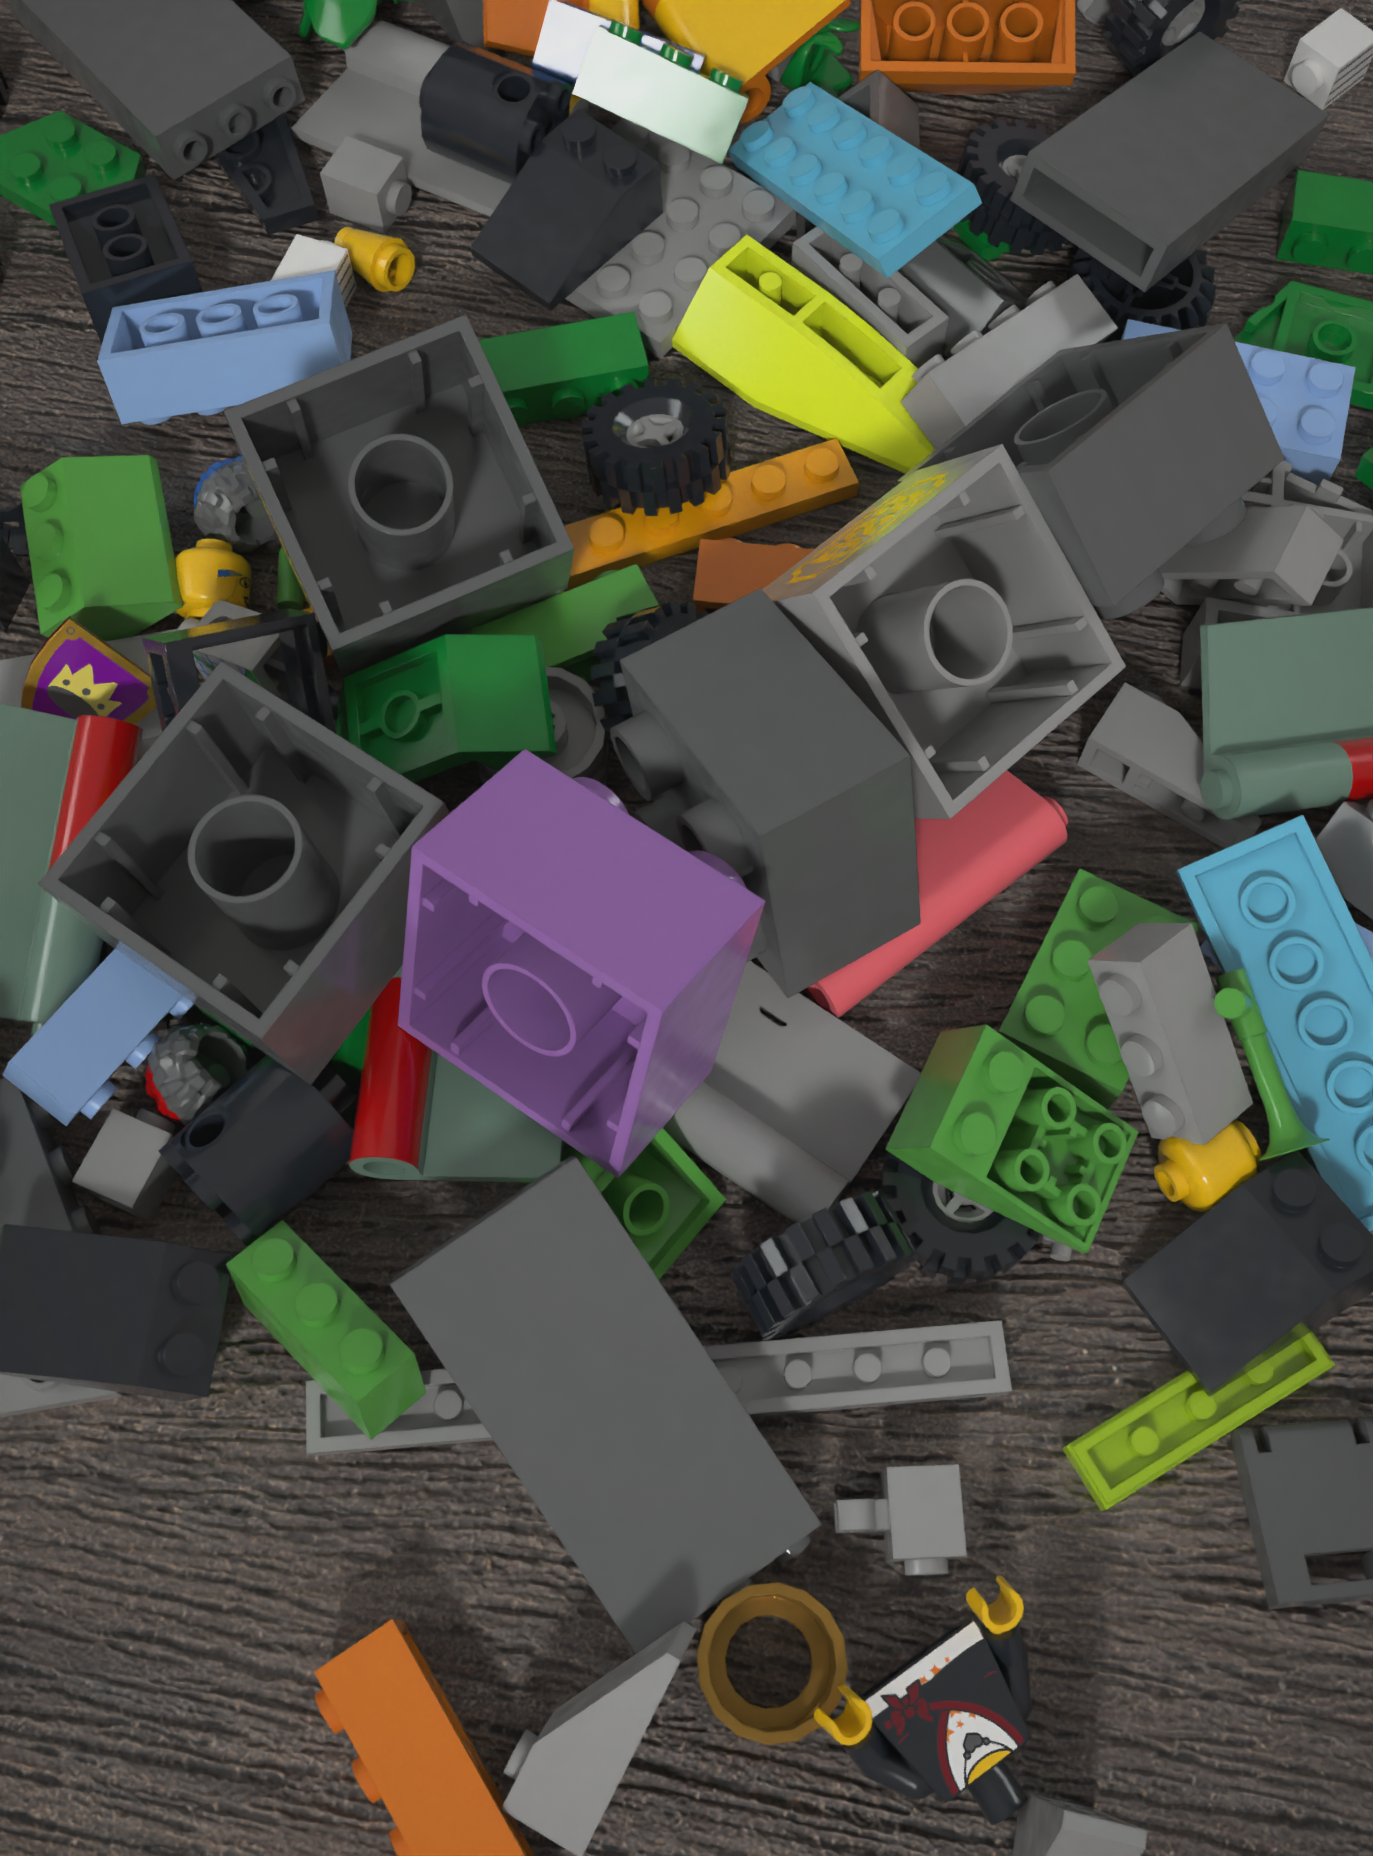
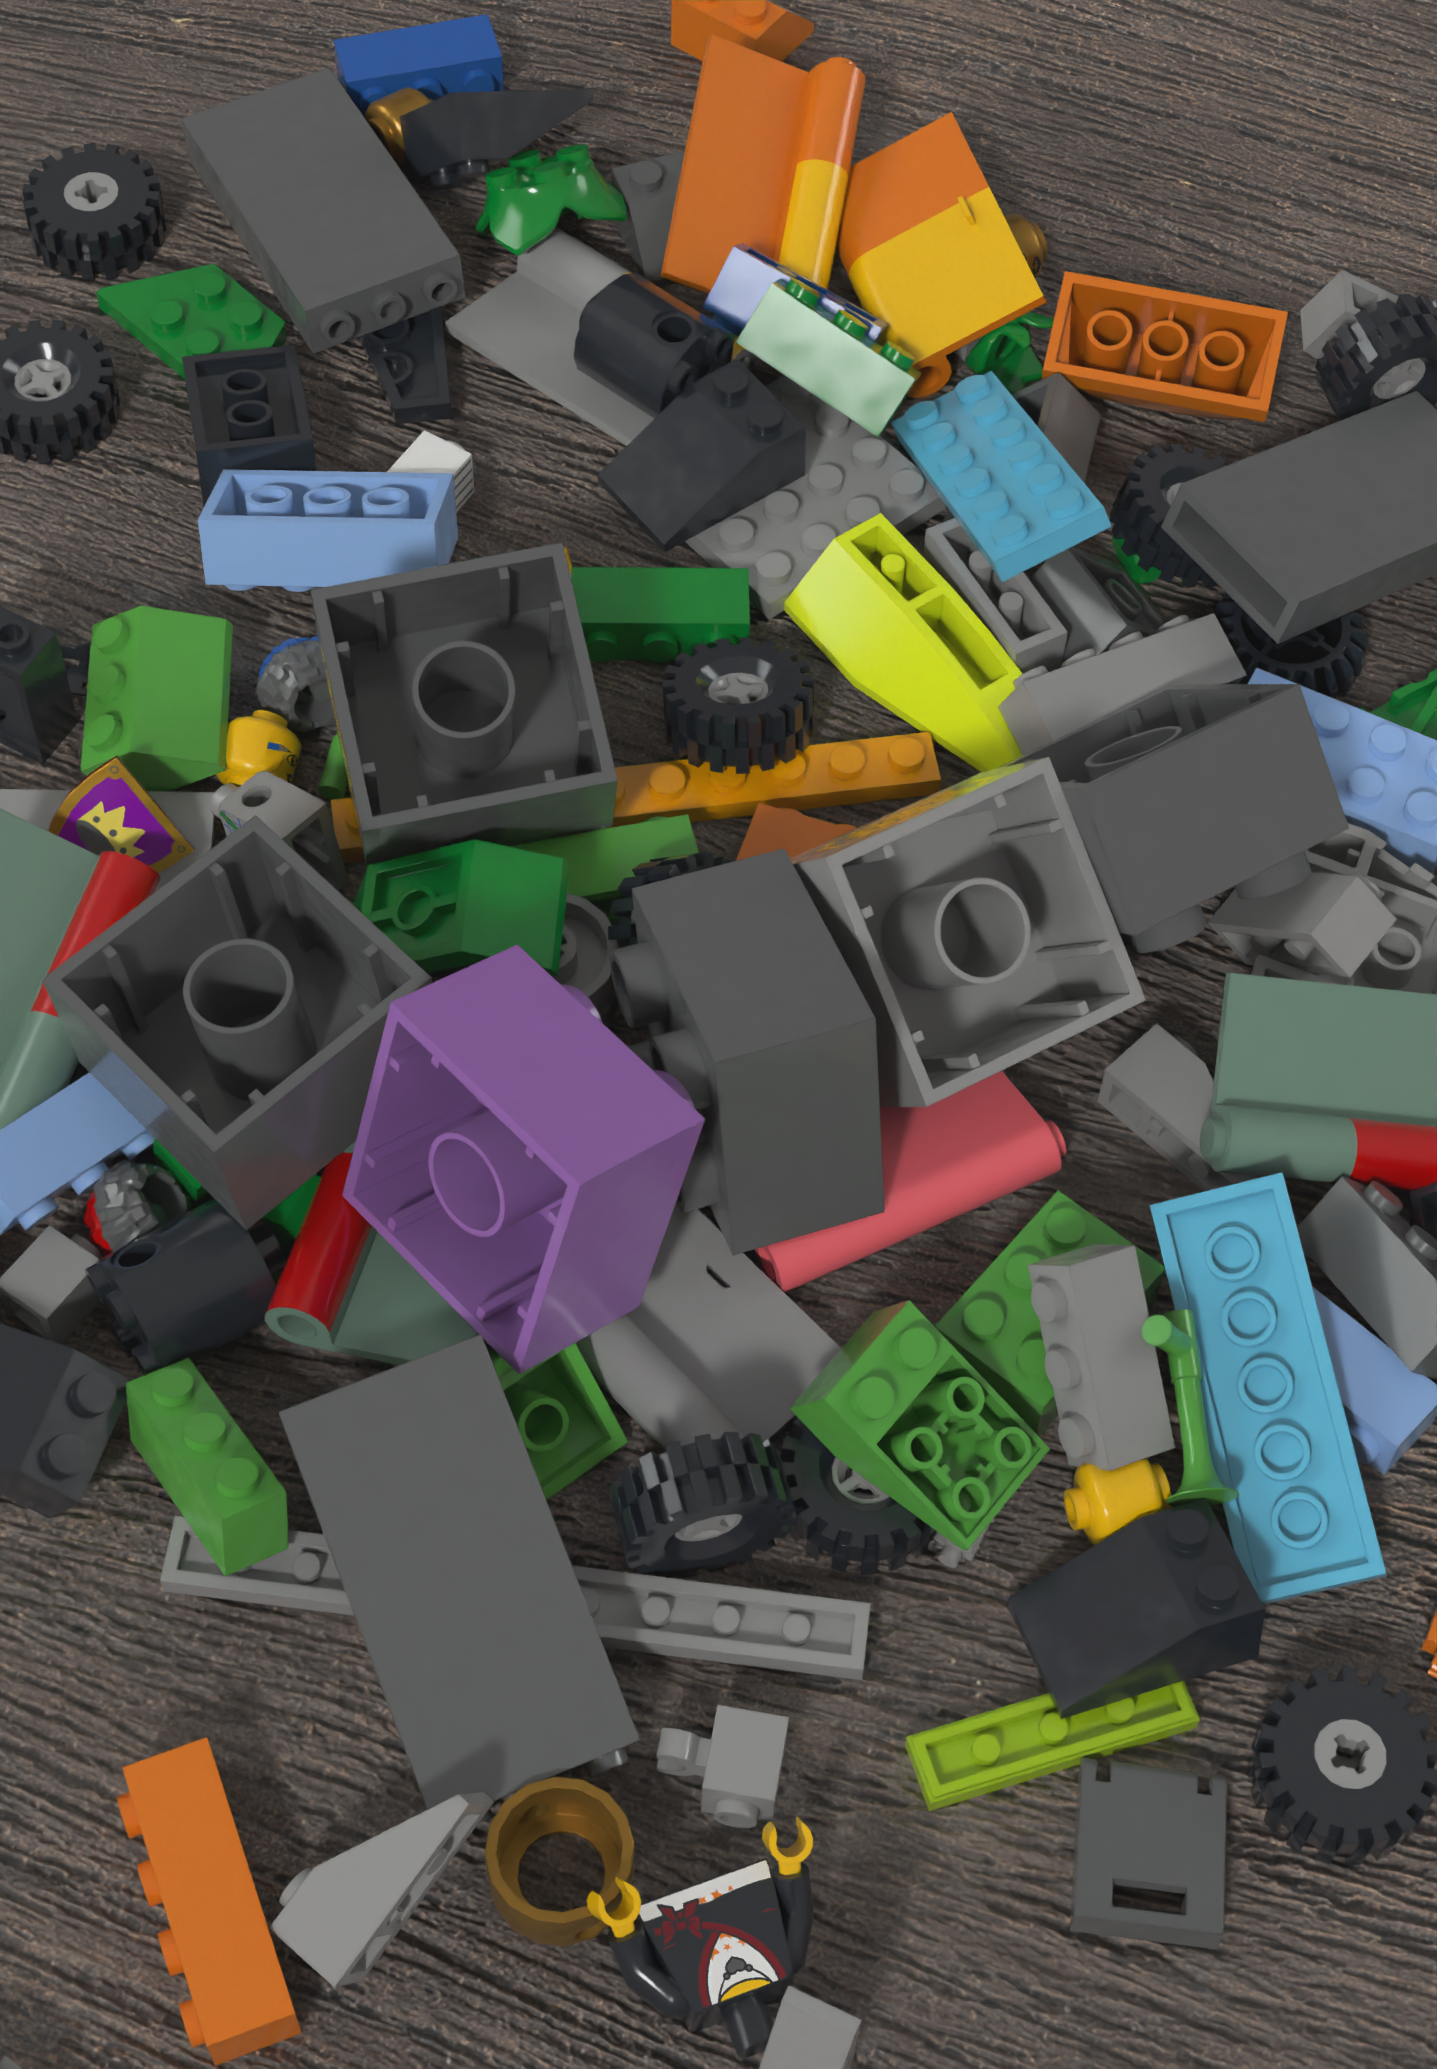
camera: 10 degrees right, 10 degrees down
(303, 650) = (335, 824): black window -> none
(366, 185) = (507, 393): light grey brick -> none
(378, 258) = (501, 468): yellow cone -> none

